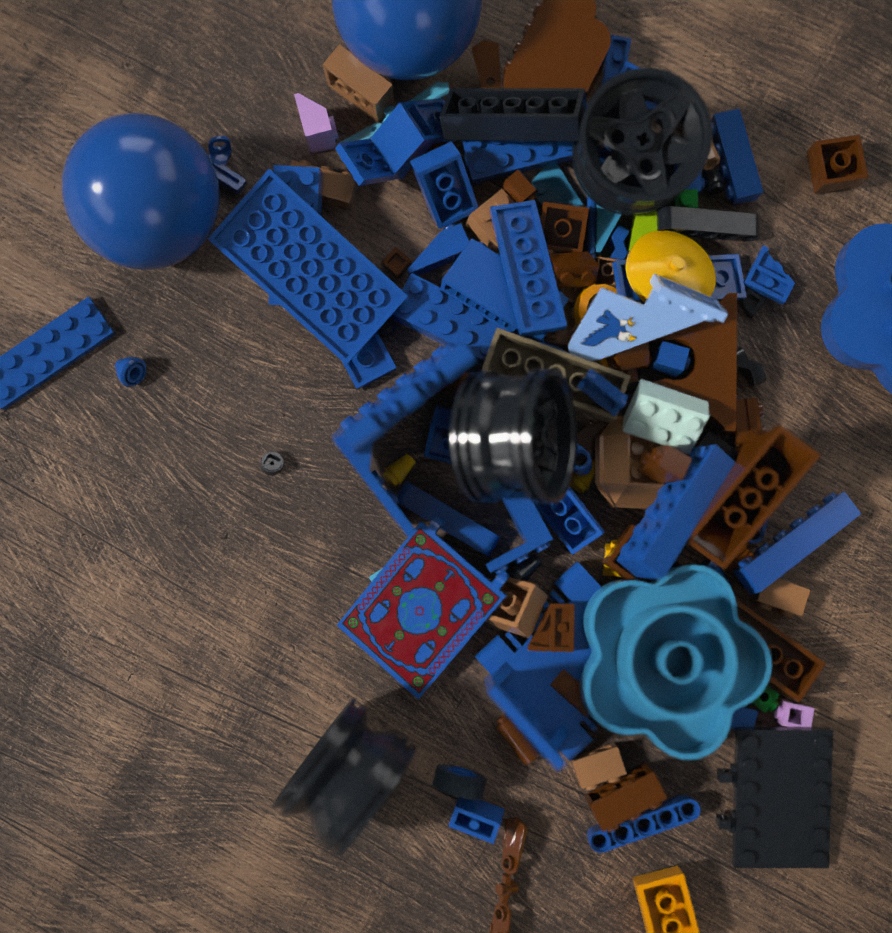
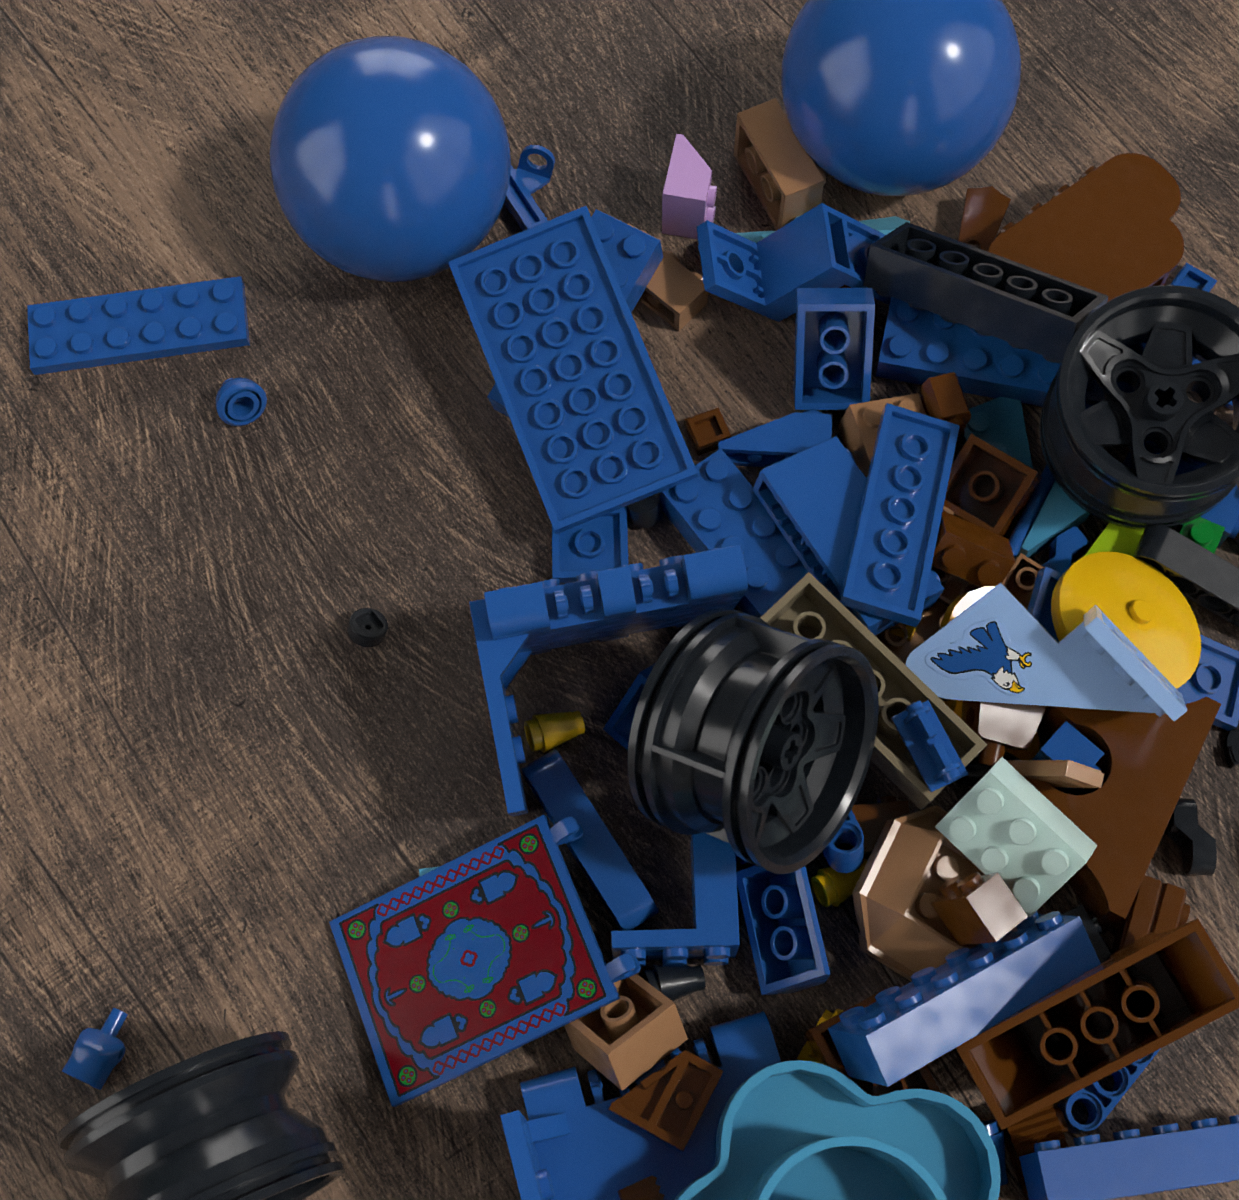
camera: 25 degrees right, 15 degrees down
(256, 747) = (97, 1051): none -> blue piece
(670, 373) = (1060, 773): none -> medium nougat tile

